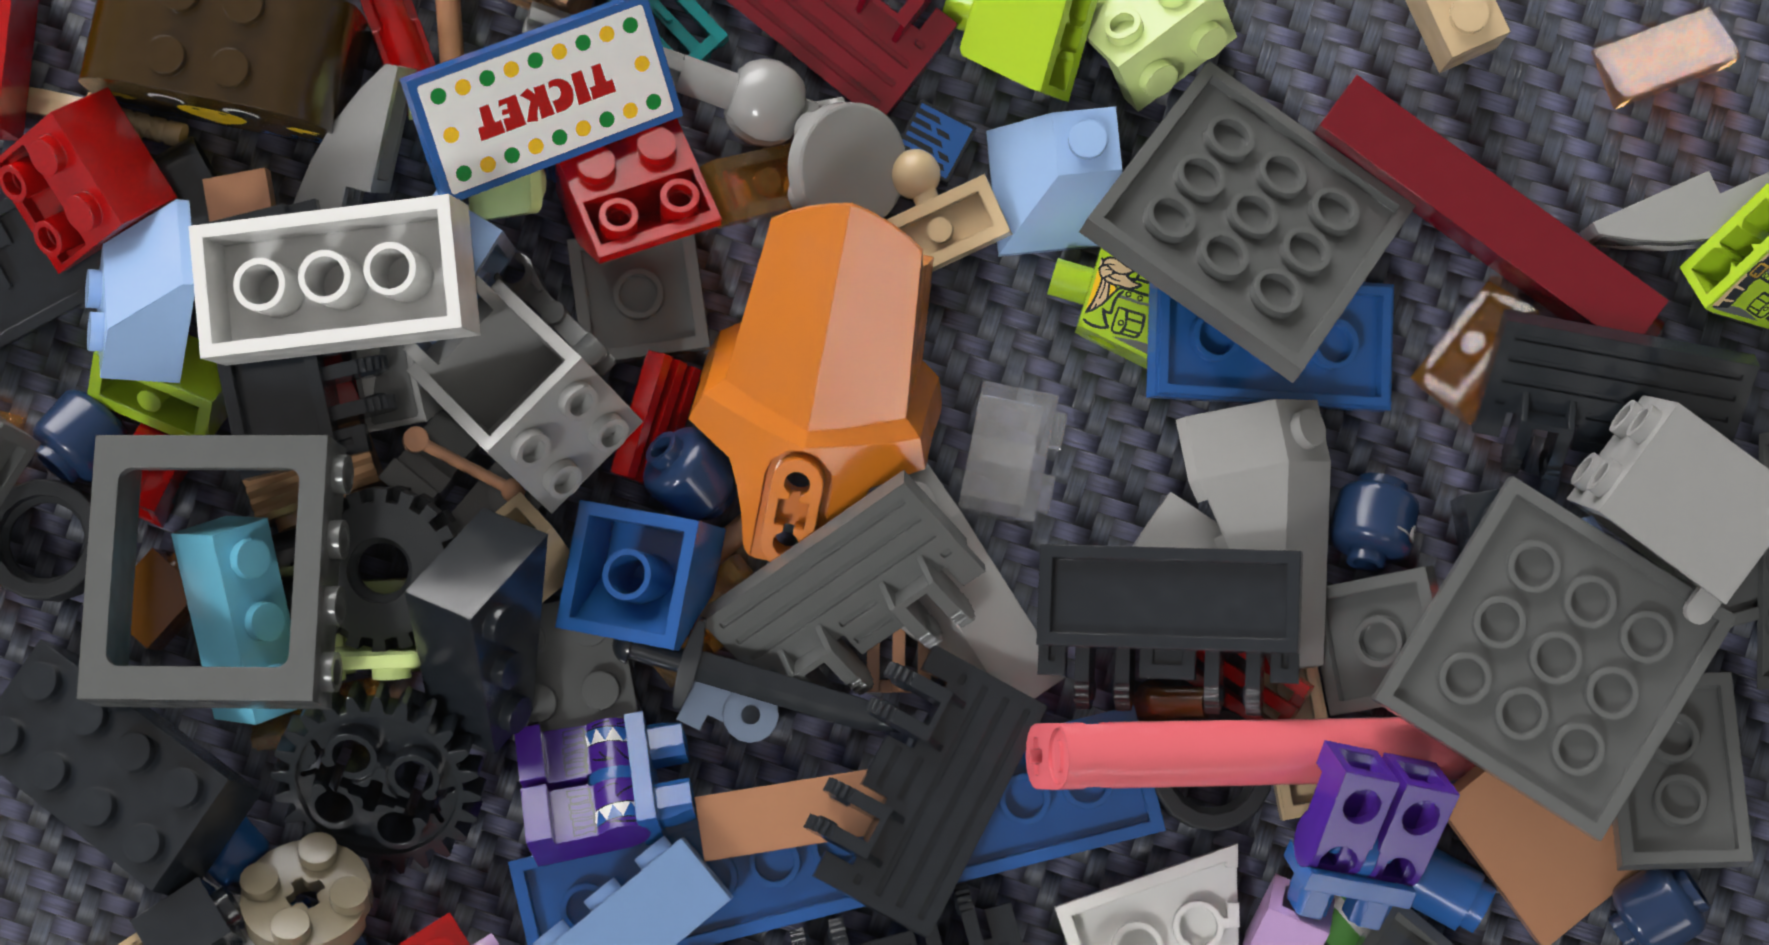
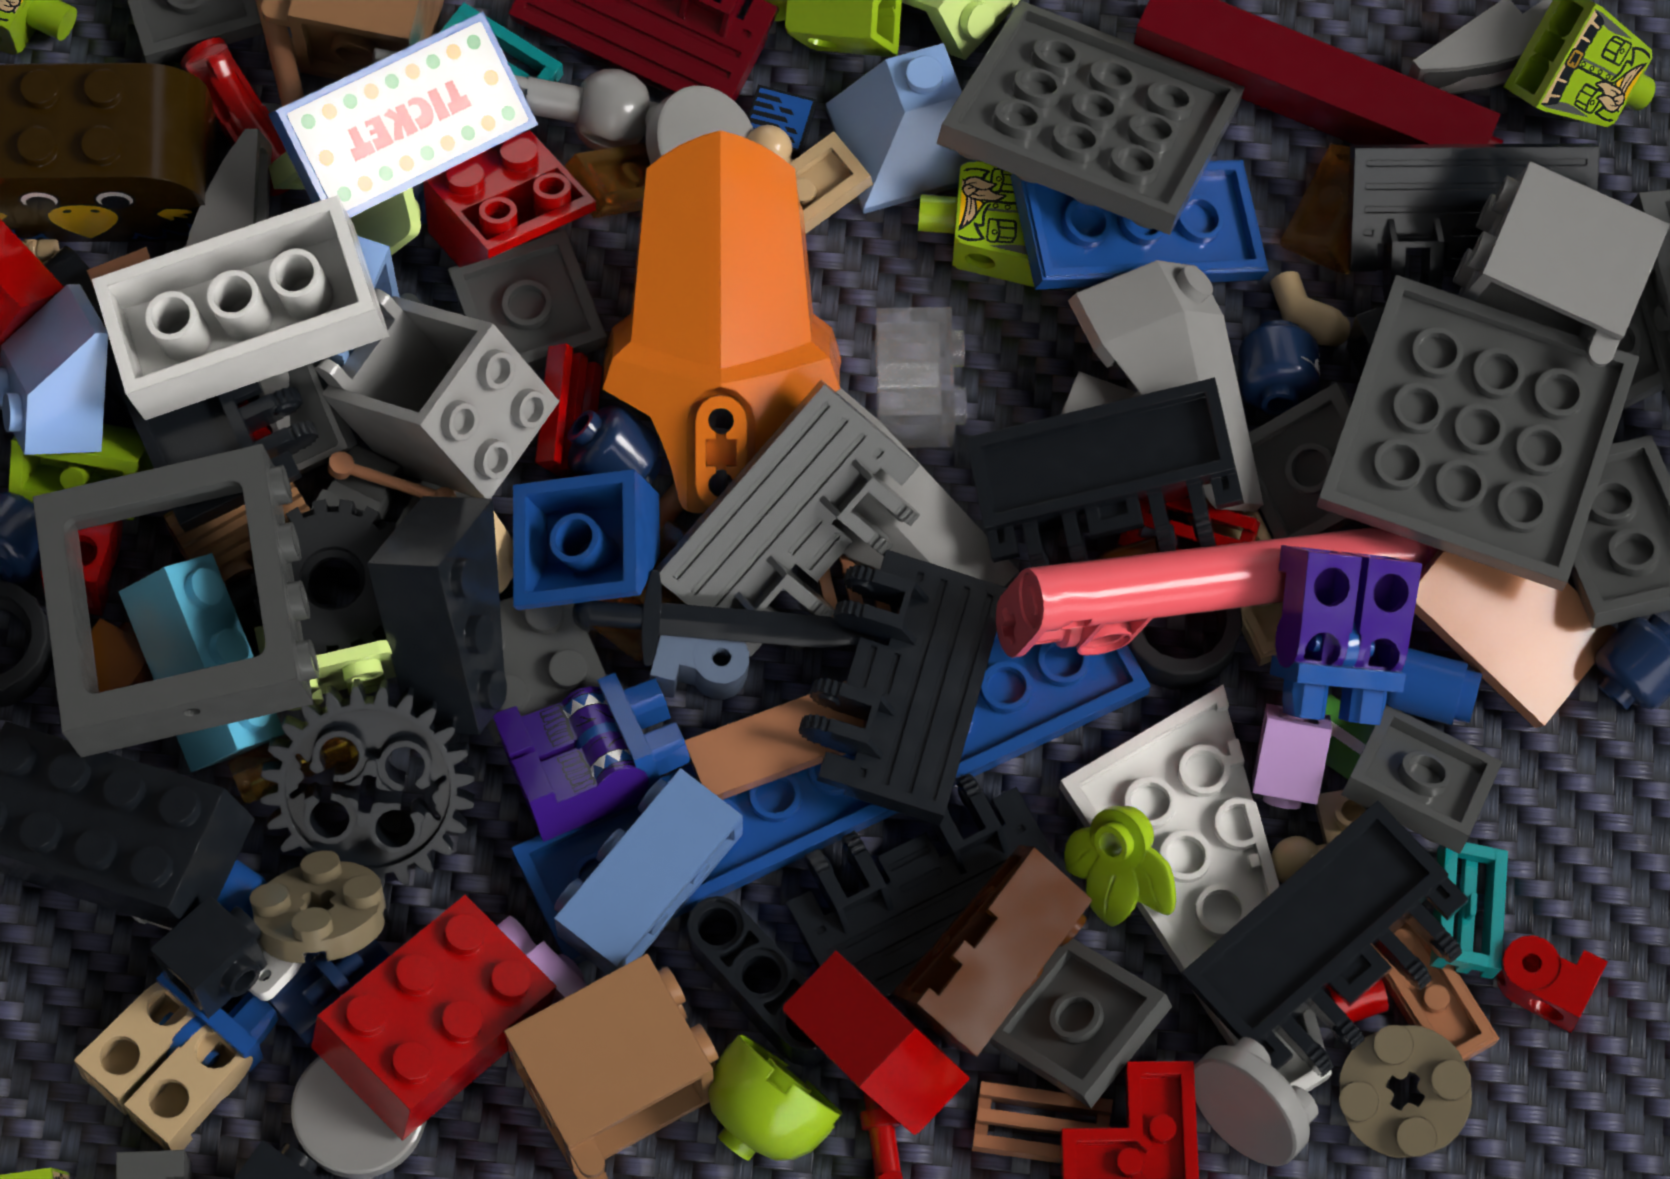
camera: 15 degrees left, 15 degrees down
(1420, 471) = (1317, 318): none -> tan arm

